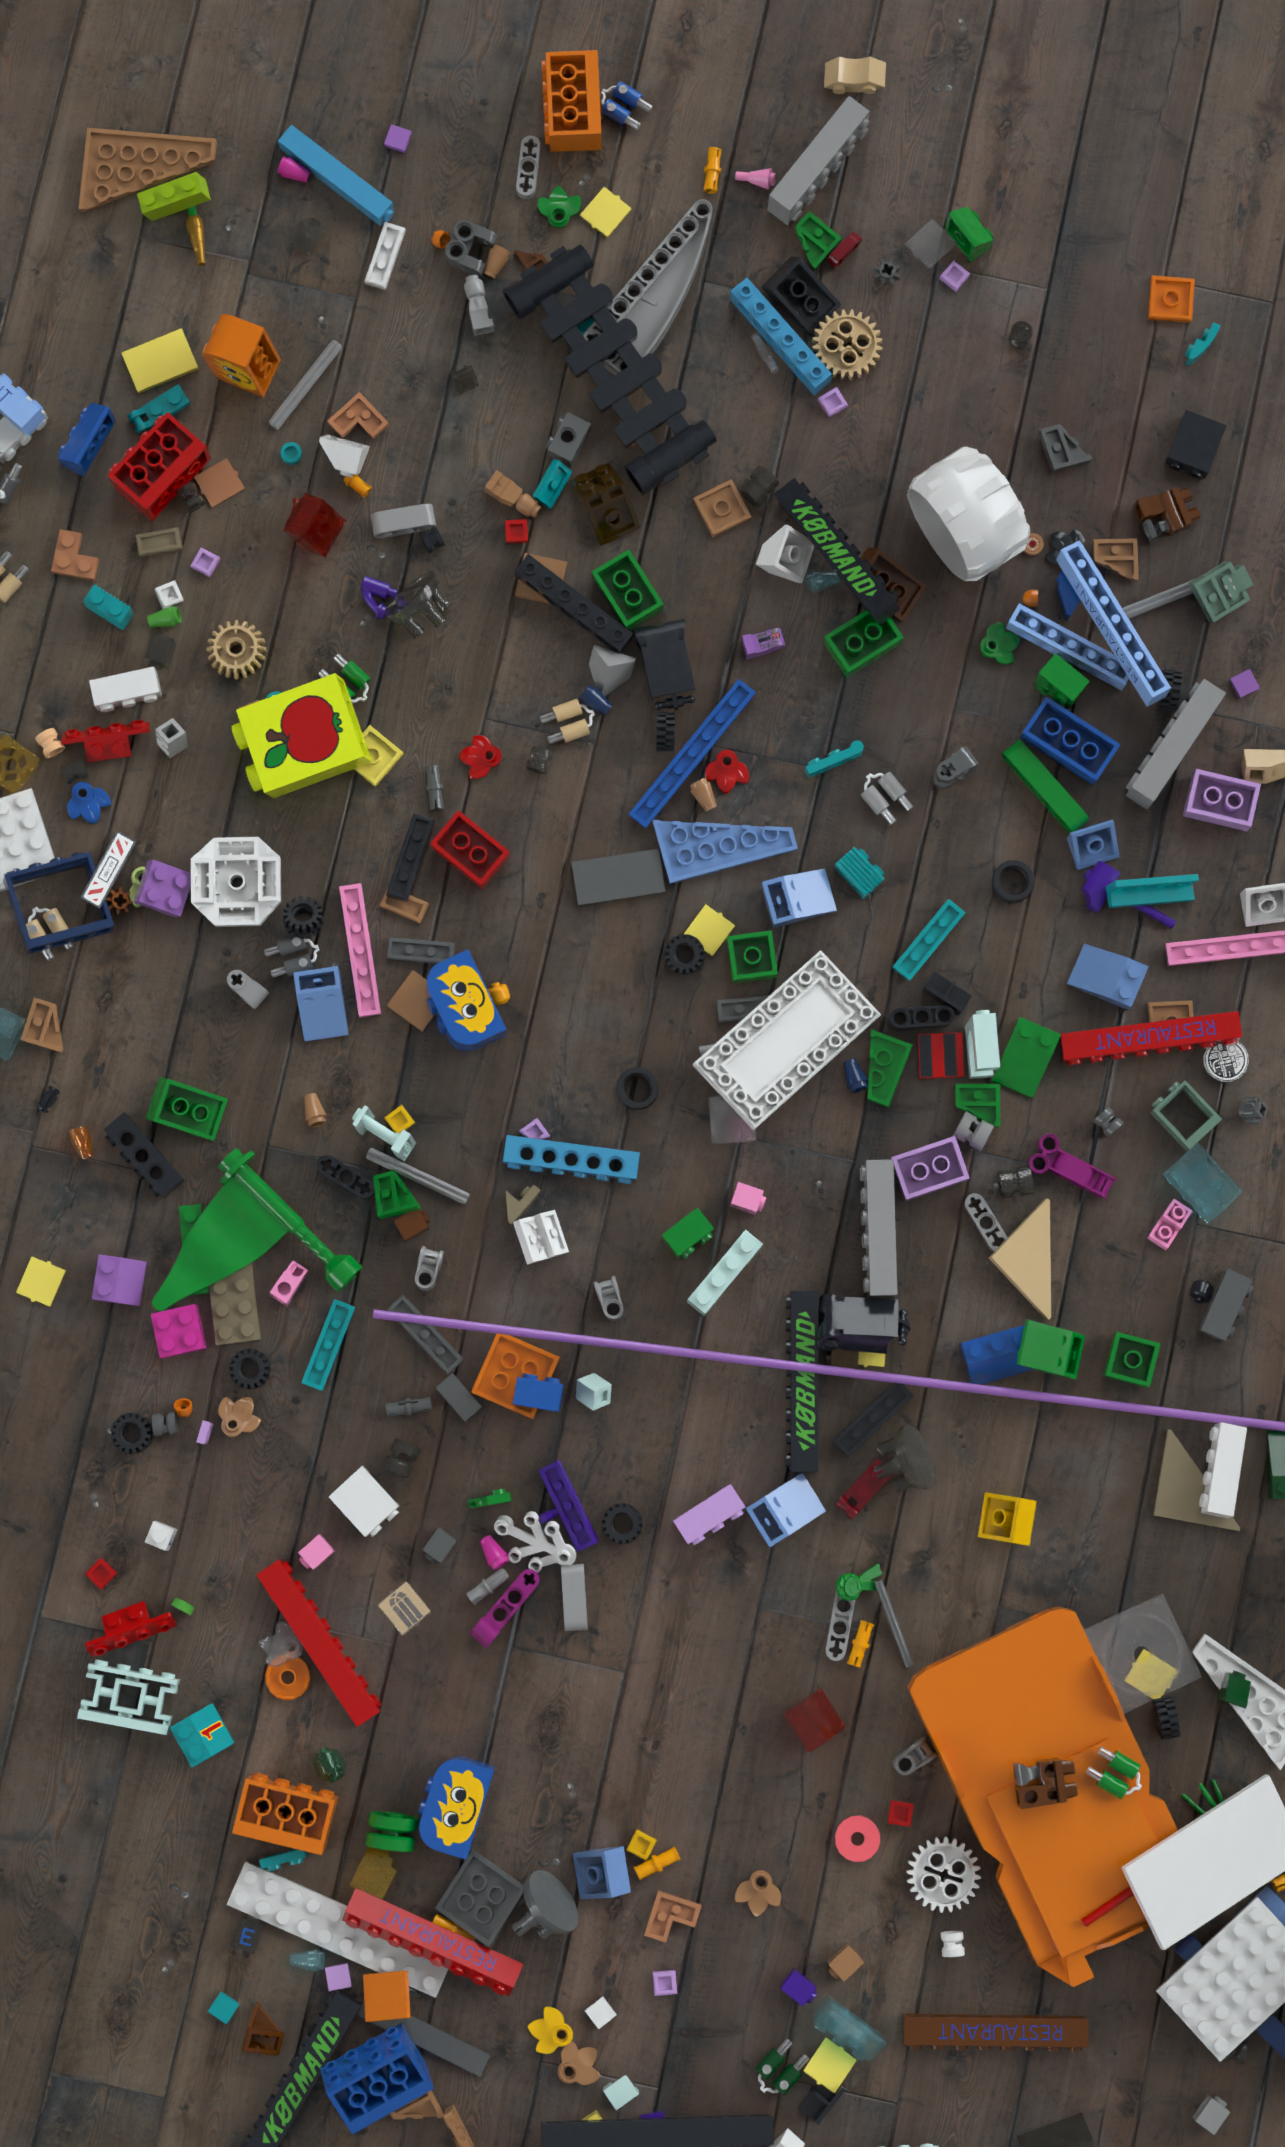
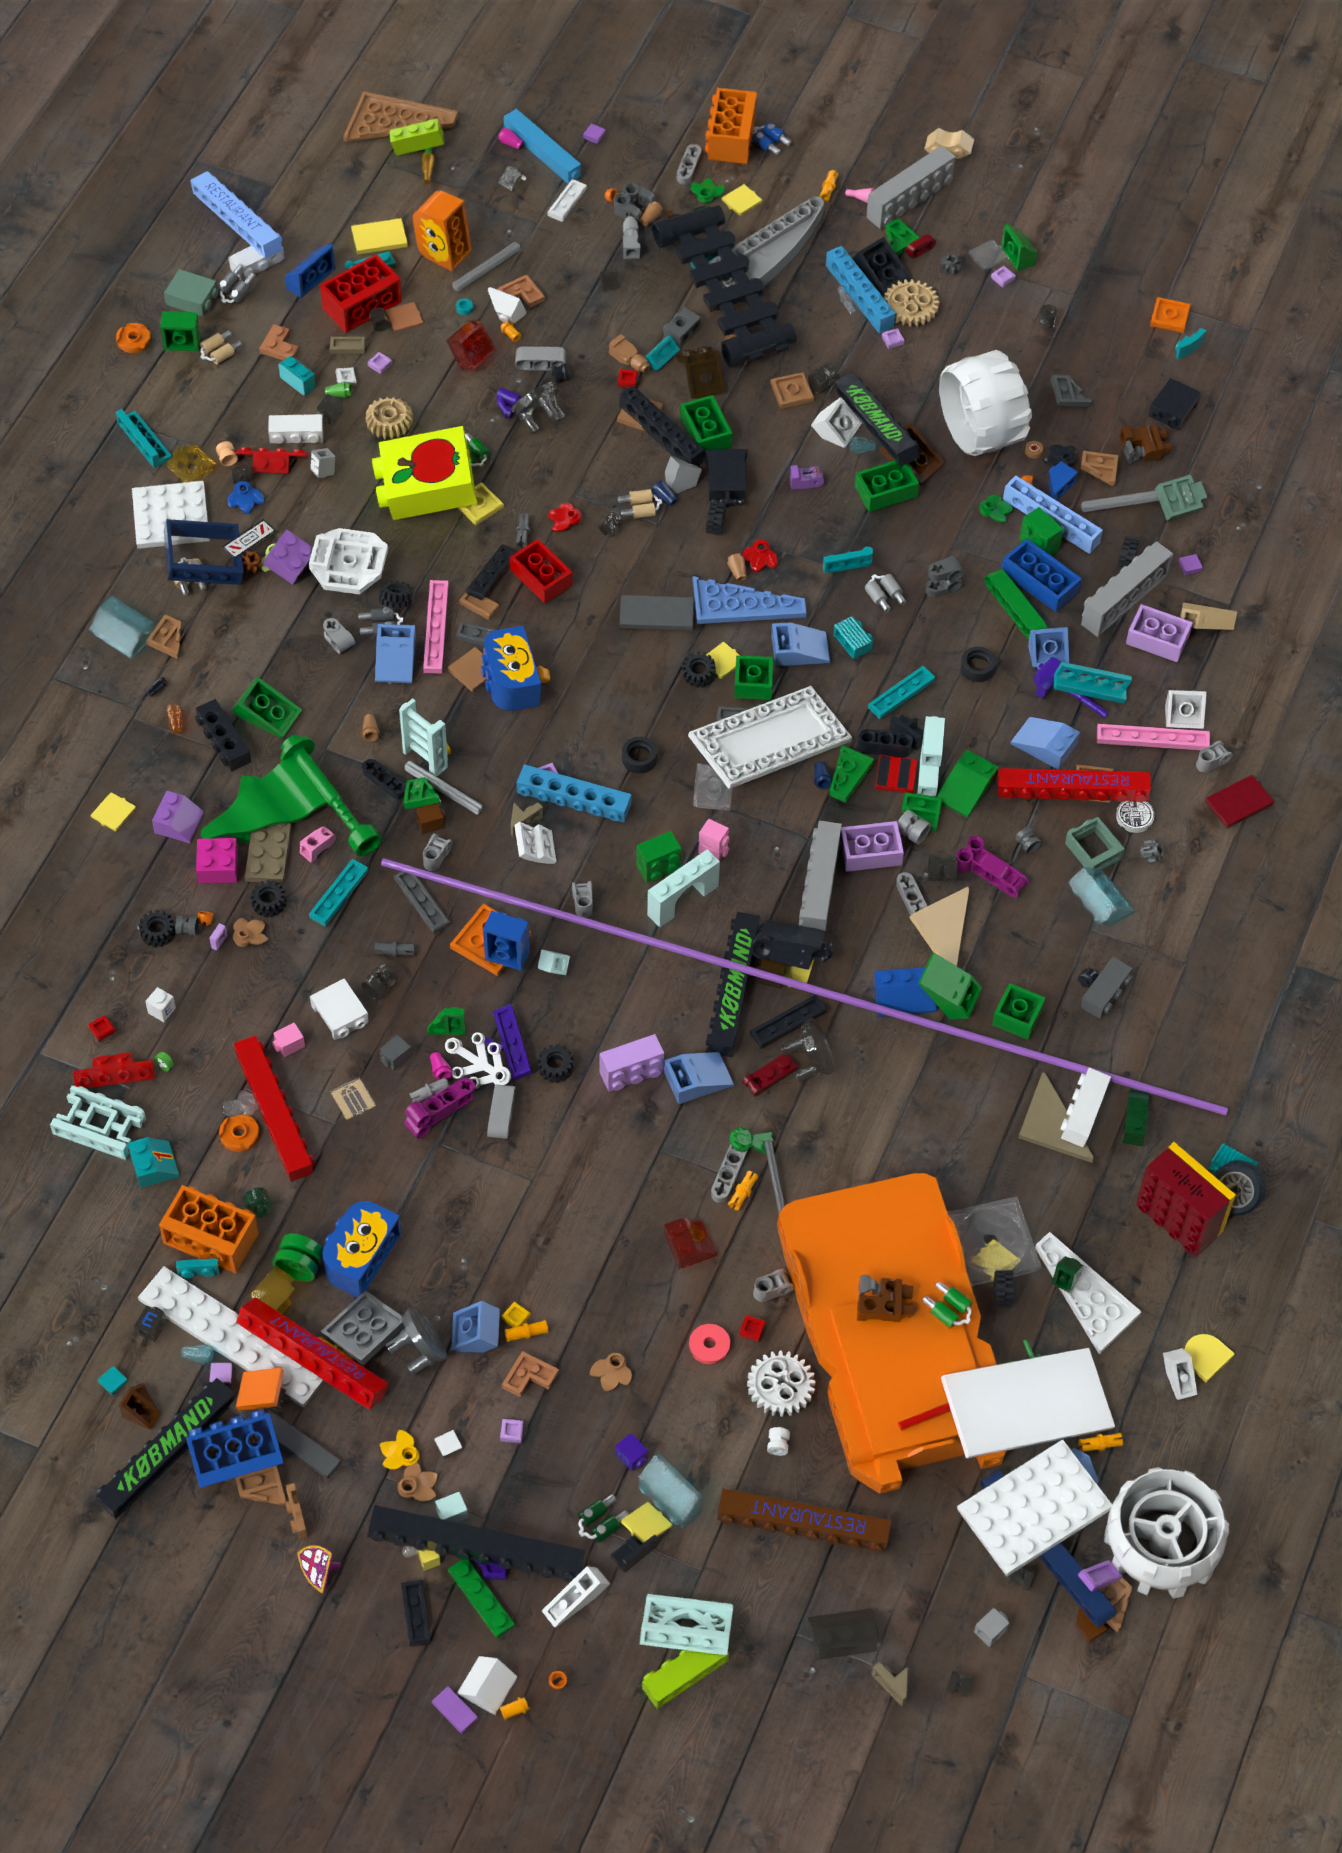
camera: 10 degrees right, 25 degrees down
(458, 1397) = (438, 949): dark grey tile -> none
(692, 753) = (734, 540): blue plate -> none
(844, 1963) = (677, 1439): medium nougat brick -> none
(1007, 1518) = (890, 1114): yellow slope -> none
(1113, 623) = (1089, 494): light blue brick -> none
(1169, 1224) = (1068, 924): bright pink slope -> none

